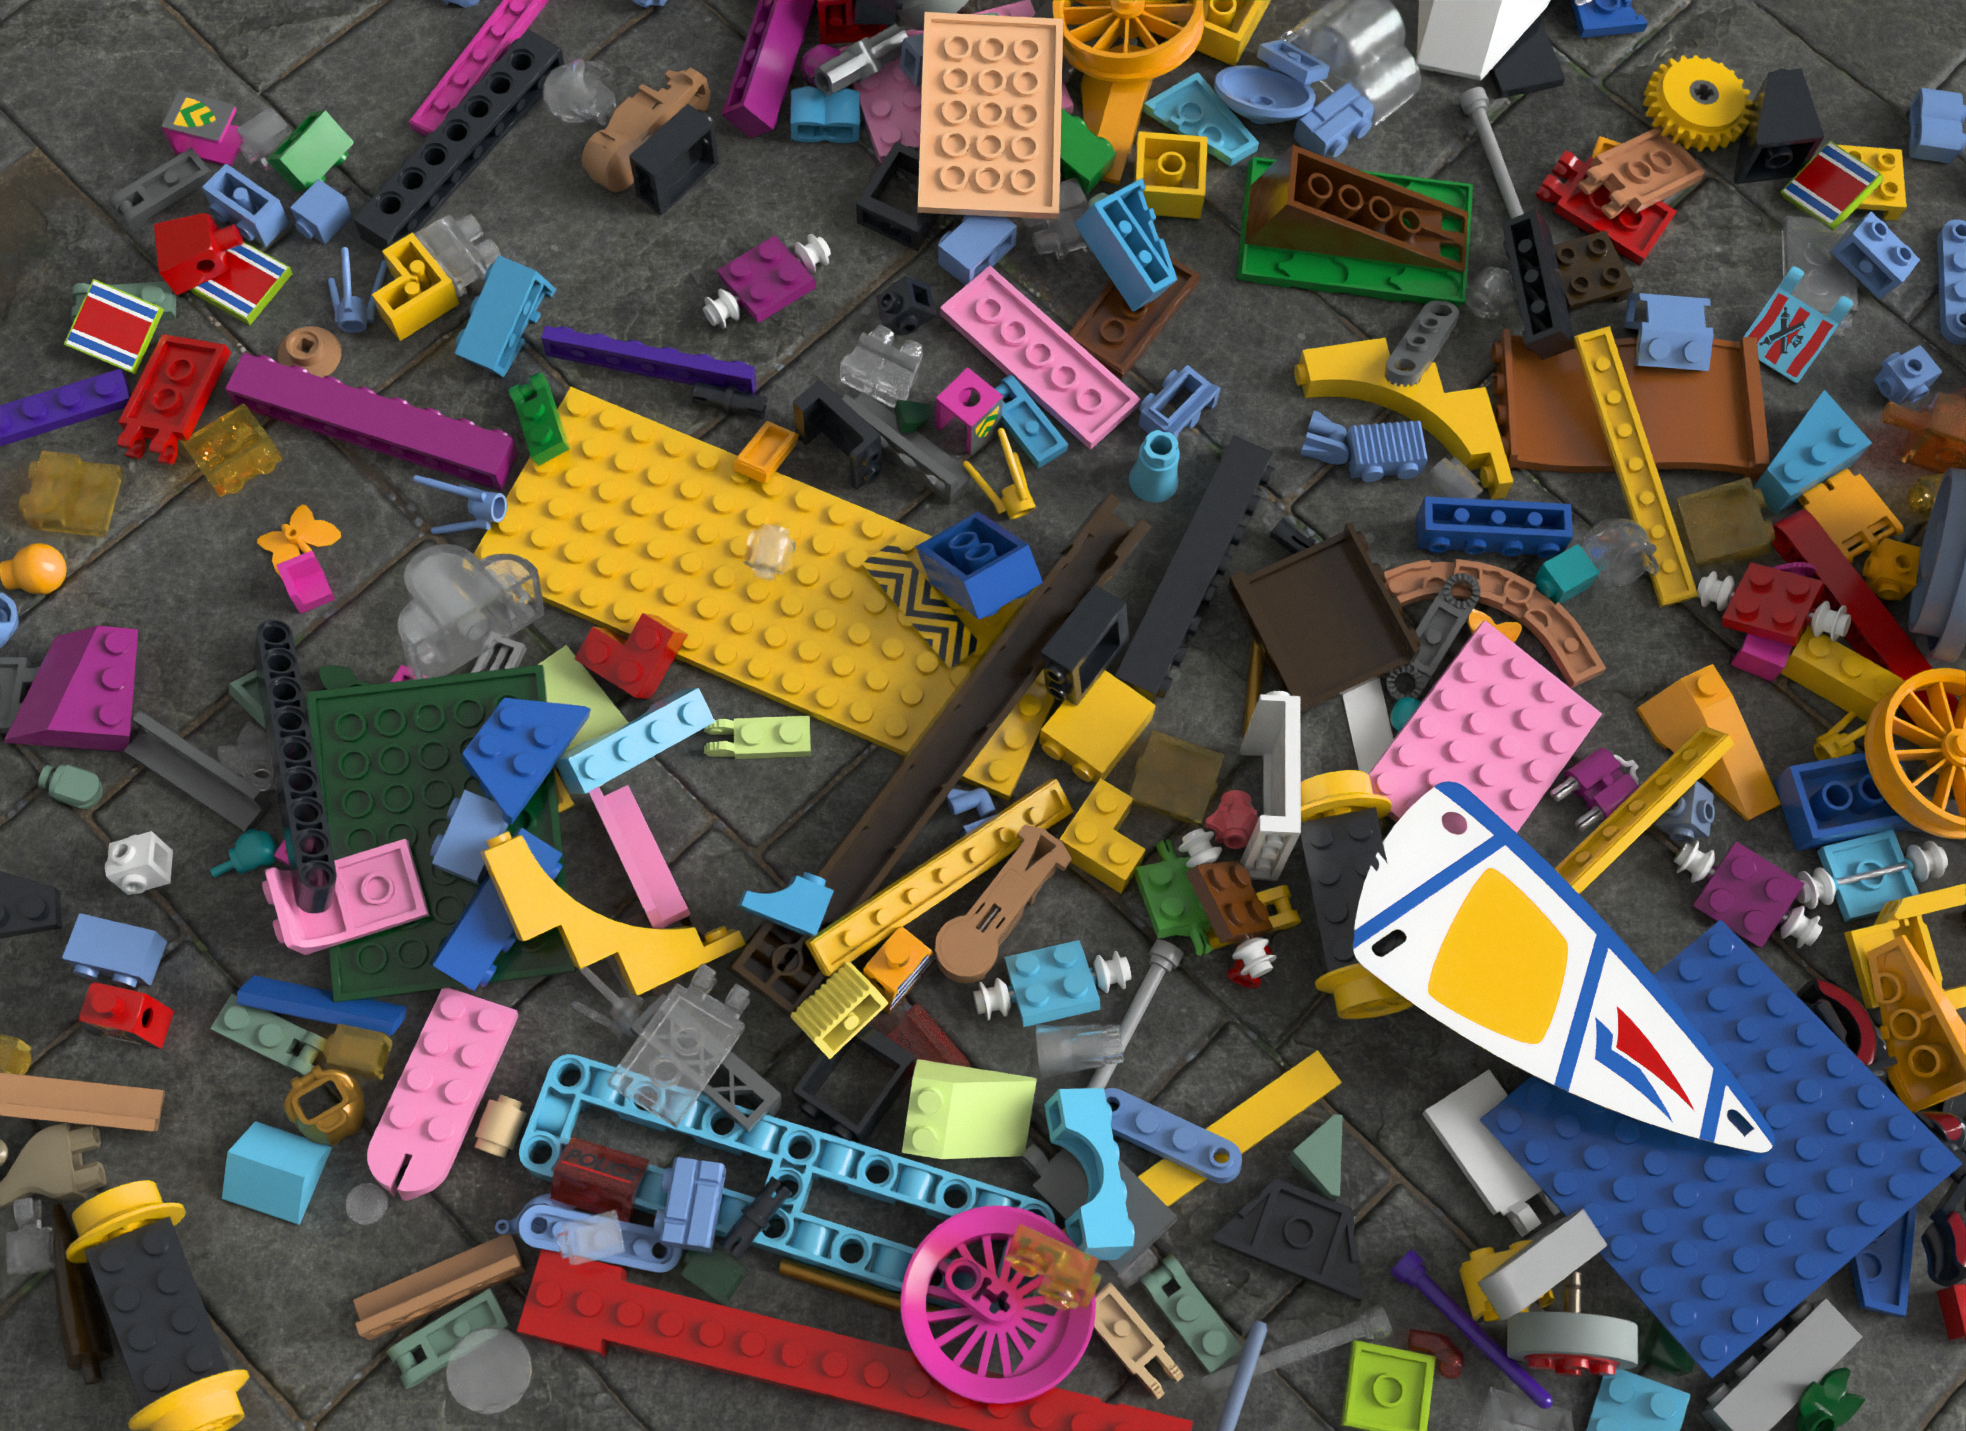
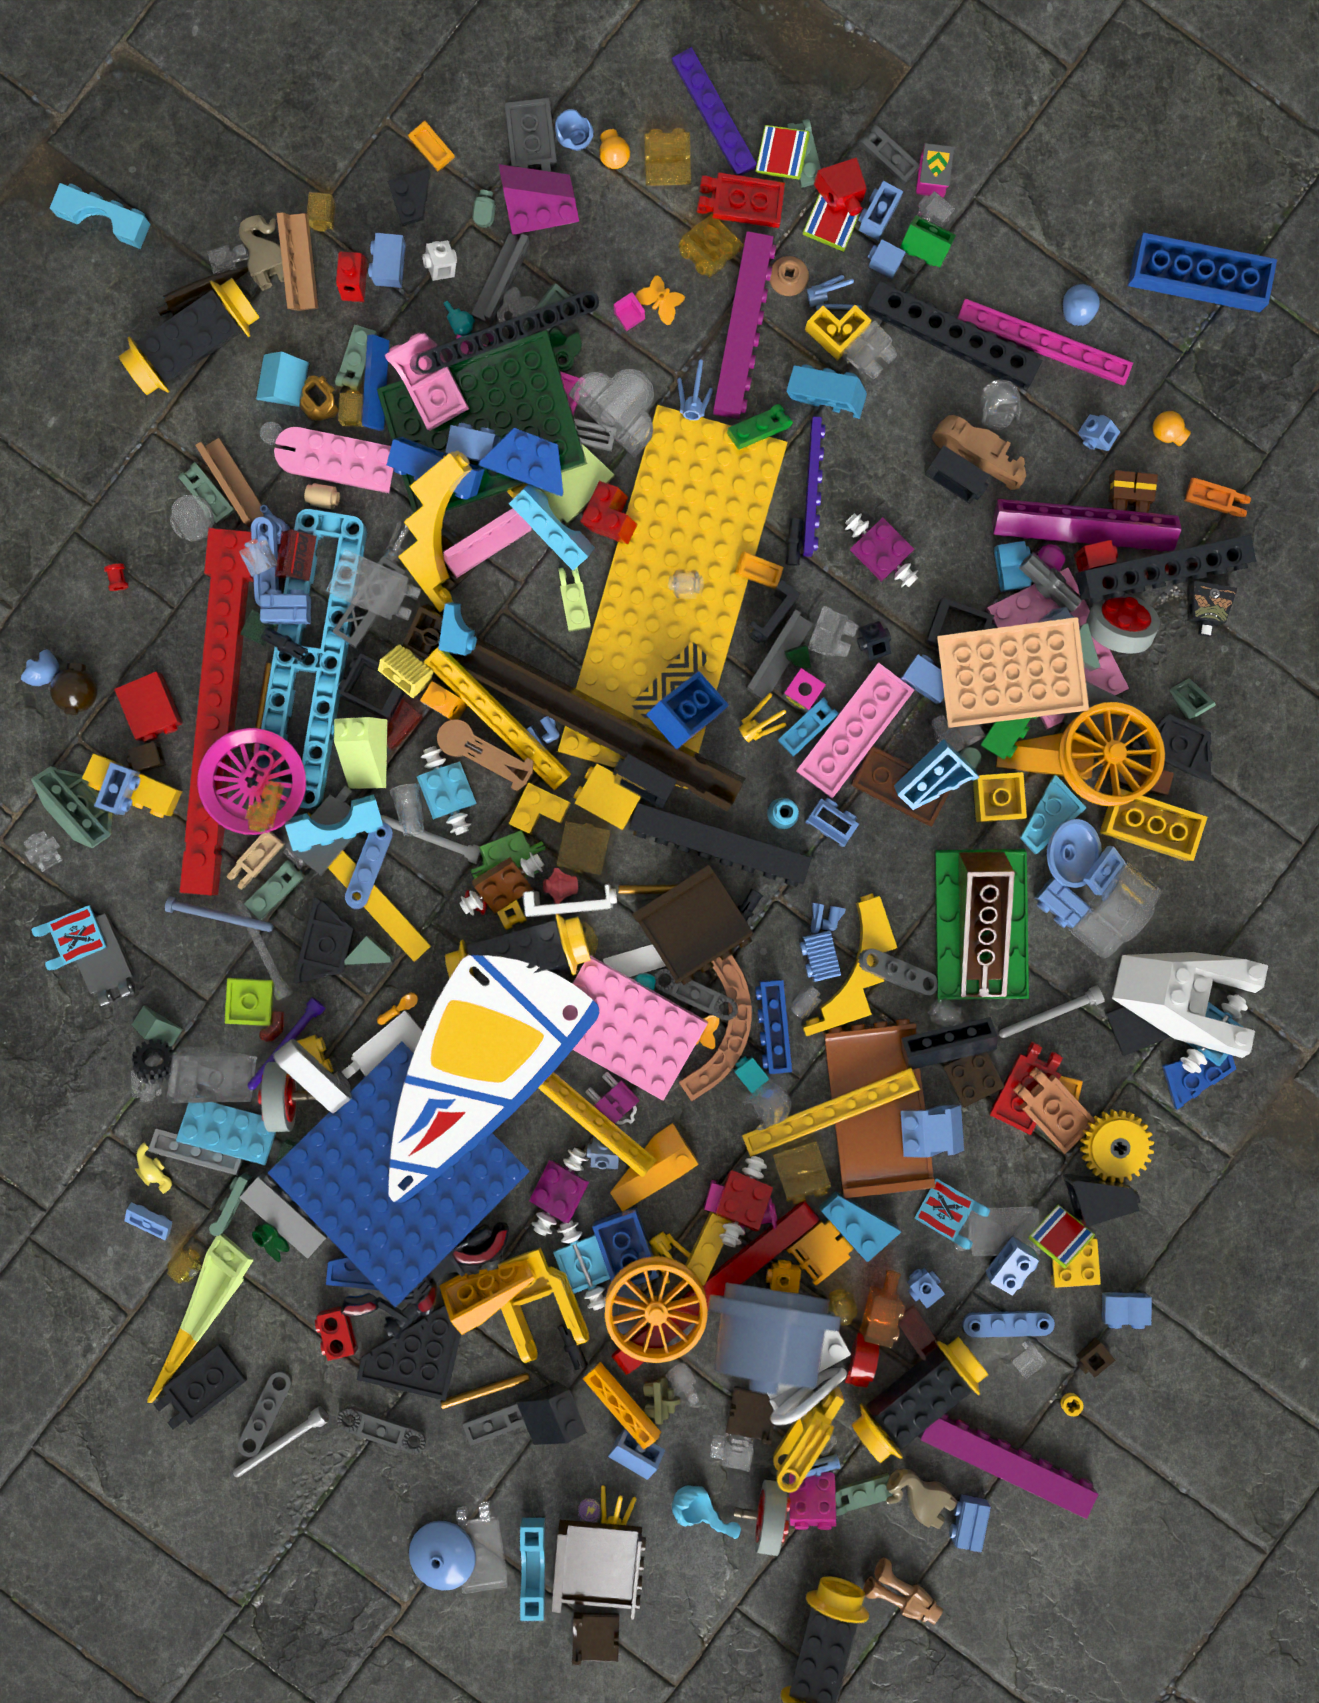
camera: 80 degrees right, 20 degrees up
(1411, 1108) = (407, 1002): none -> light orange piece

